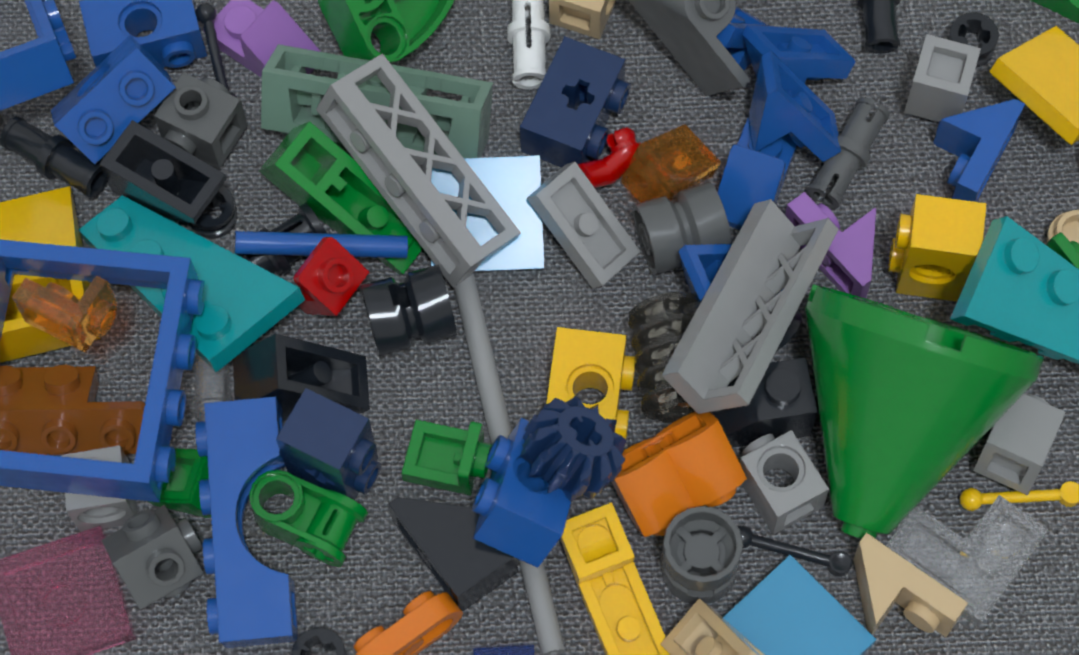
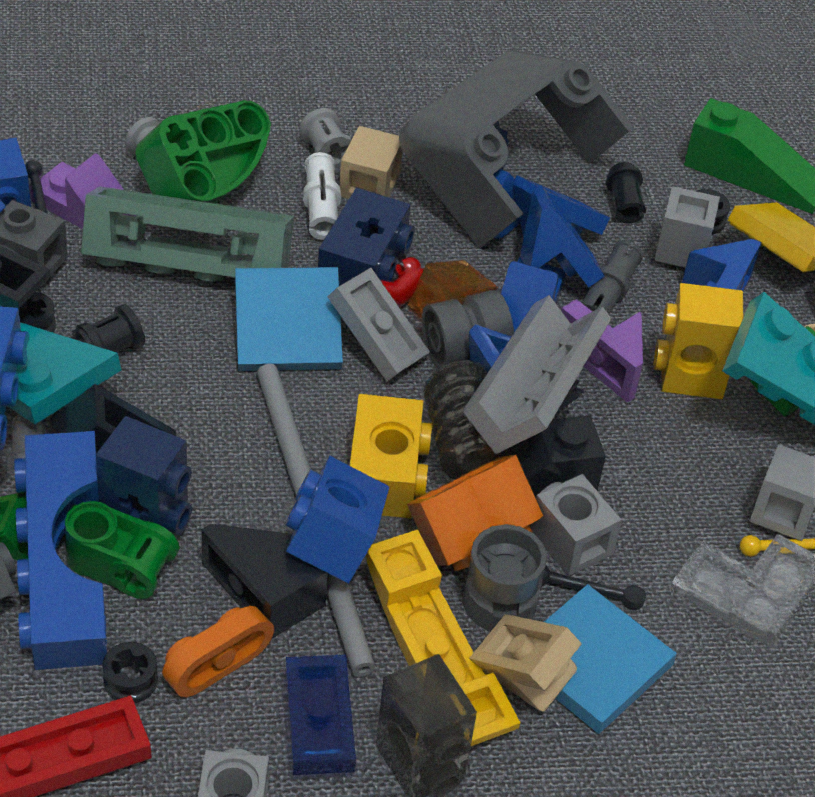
camera: 10 degrees left, 20 degrees down
(304, 243) = (136, 331): blue bar -> none
(328, 278) = (143, 355): red bracket -> none
(336, 188) = (161, 300): green slope -> none
(401, 180) = (216, 274): light grey fence -> none
(409, 310) = (218, 386): black wheel -> none
(446, 456) = (256, 500): green bracket -> none
(573, 448) = (382, 471): dark blue gear -> none
(890, 579) = (689, 603): tan slope -> none
(901, 402) = (686, 433): green cone -> none

